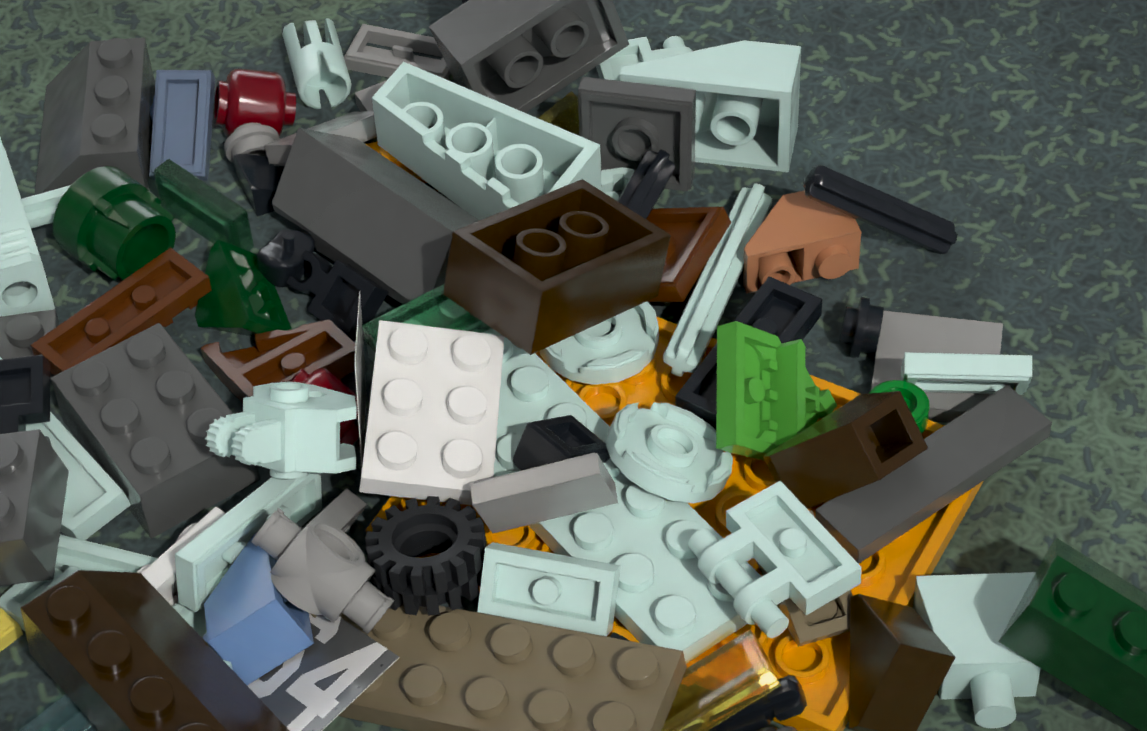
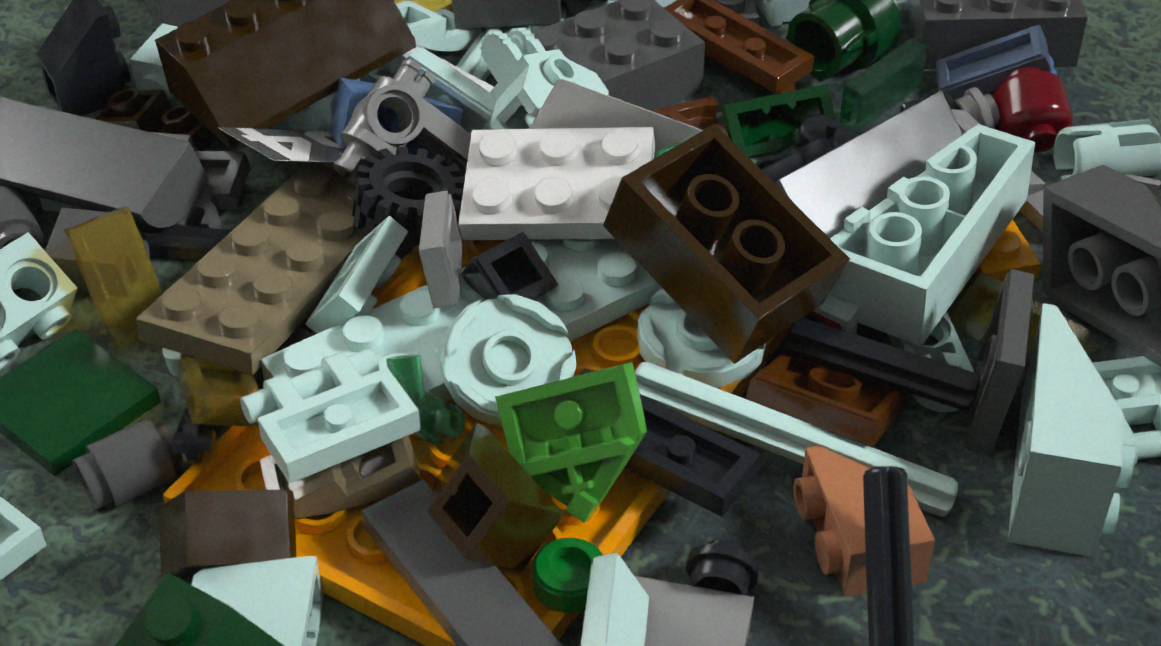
camera: 90 degrees right, 5 degrees down
(711, 512) = (438, 419): none -> clear green arm

